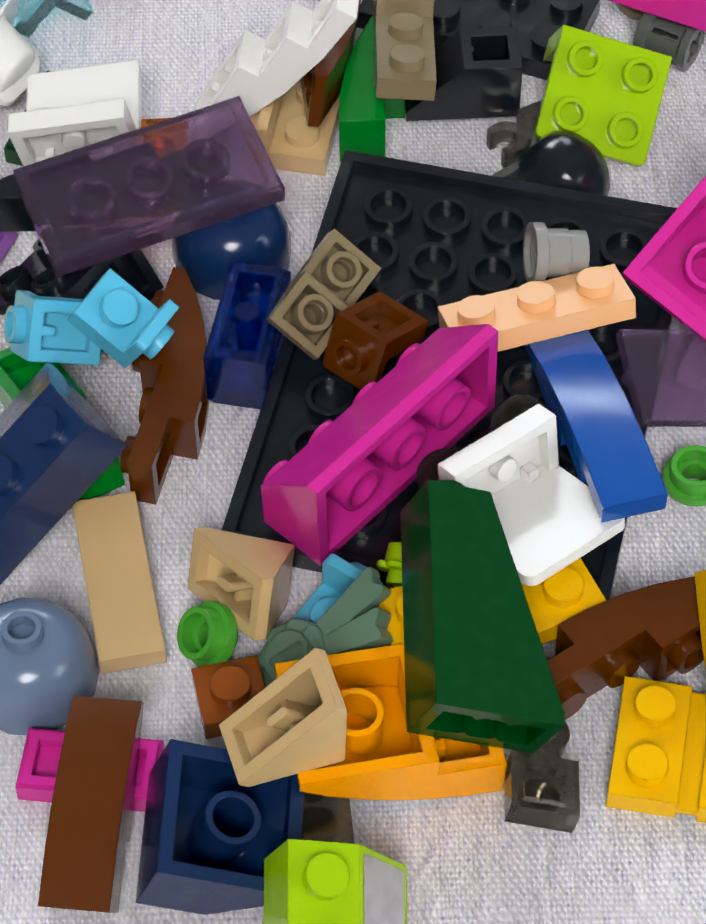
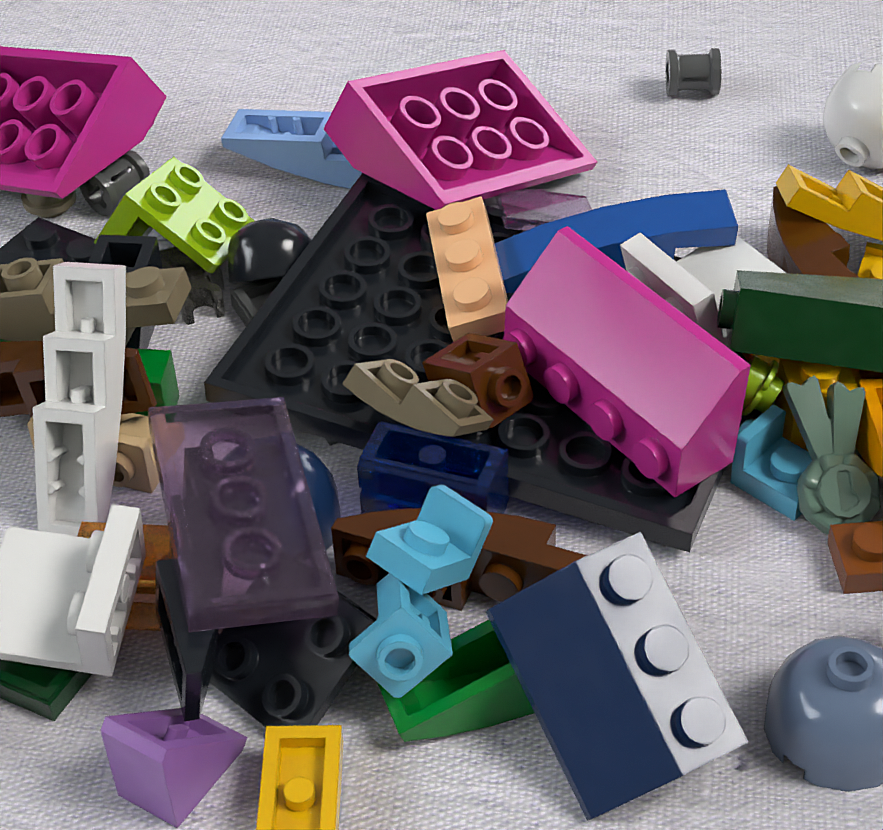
camera: 80 degrees left, 10 degrees down
(119, 583) = (756, 630): tan tile -> none
(207, 633) = (824, 561): bright green plate -> none
(244, 574) = (757, 510): tan slope -> none
(553, 251) = (401, 260): light grey piece -> none

